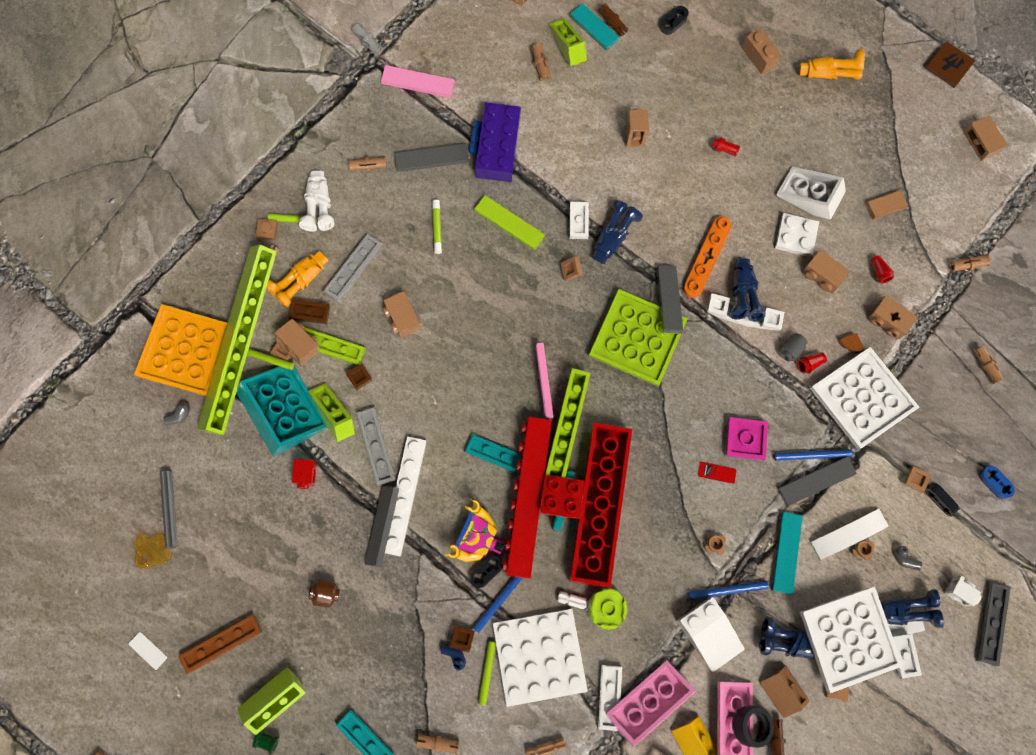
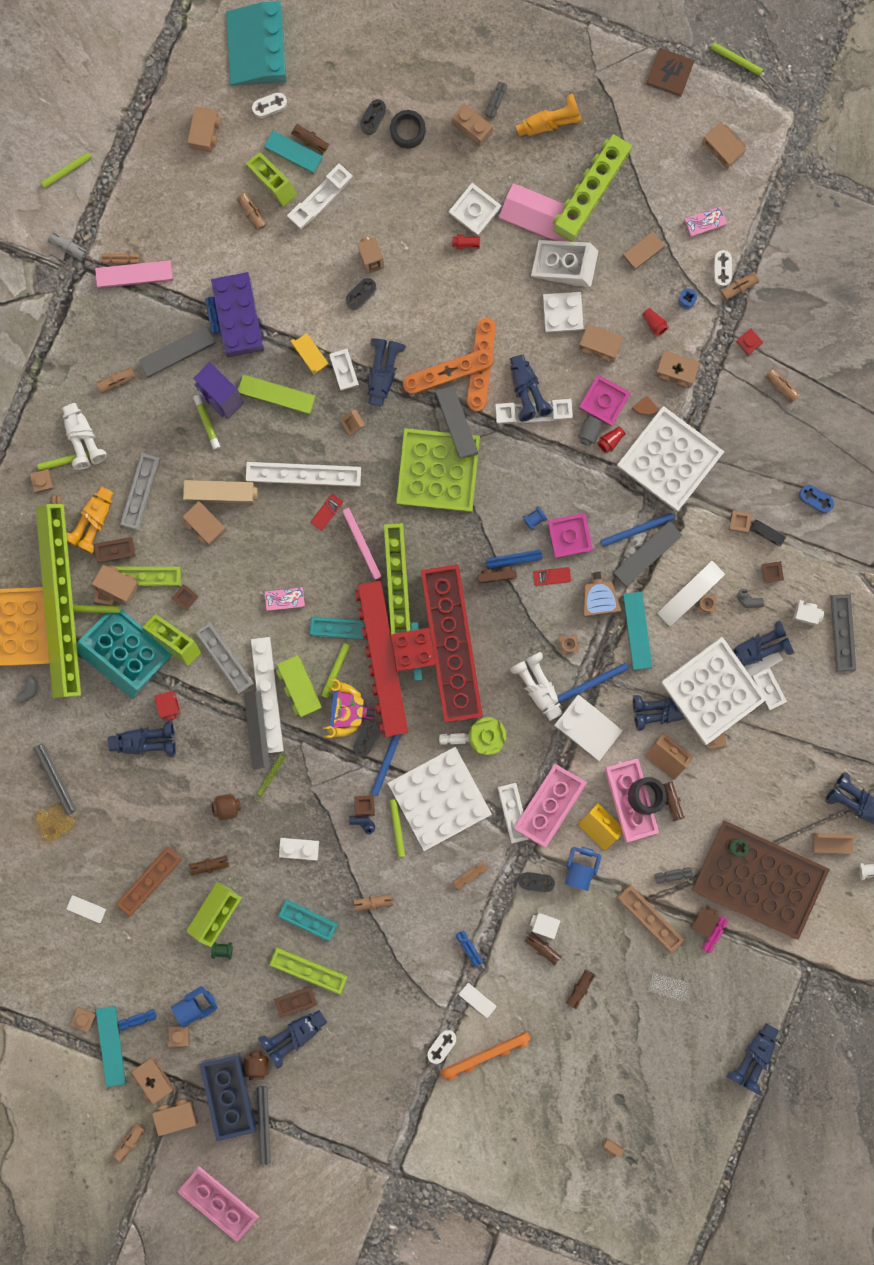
camera: 10 degrees left, 10 degrees up
(260, 499) = (136, 741): none -> dark blue piece
(285, 647) = (208, 865): none -> reddish brown pin
(381, 661) = (299, 849): none -> white plate
(382, 573) = (266, 781): none -> lime piece
(410, 64) = (120, 258): none -> medium nougat axle
(426, 290) = (220, 492): none -> tan brick
(437, 497) = (298, 686): none -> lime brick
(453, 409) = (284, 599): none -> tile
(457, 195) = (218, 391): none -> dark purple brick
(479, 493) = (335, 670): none -> lime bar
(510, 300) = (303, 474): none -> white plate
(520, 342) = (326, 512): none -> red sticker
(551, 197) = (309, 354): none -> yellow panel
(608, 69) = (320, 197): none -> white slope
(614, 159) = (364, 297): none -> black beam
(657, 253) = (466, 365): none -> orange piece
(657, 452) = (489, 576): none -> reddish brown plate
(675, 584) = (542, 693): none -> white piece
(685, 444) = (514, 559): none -> blue axle
(702, 26) = (407, 114): none -> black tyre
(717, 411) = (534, 518): none -> blue bush
(742, 122) = (475, 209): none -> white plate
(759, 508) = (599, 597): none -> torso
(788, 39) = (496, 100): none -> dark grey axle
(799, 144) = (532, 212): none -> bright pink slope
(815, 324) = (604, 400): none -> dark pink plate
(856, 135) = (570, 228): none -> lime brick
(918, 258) = (690, 293): none -> blue bush
(937, 539) = (772, 572): none -> reddish brown plate
(950, 198) = (705, 222): none -> tile
(960, 244) = (727, 268): none -> white beam
(966, 315) = (749, 341): none -> red plate
(1013, 72) = (736, 58): none -> lime bar

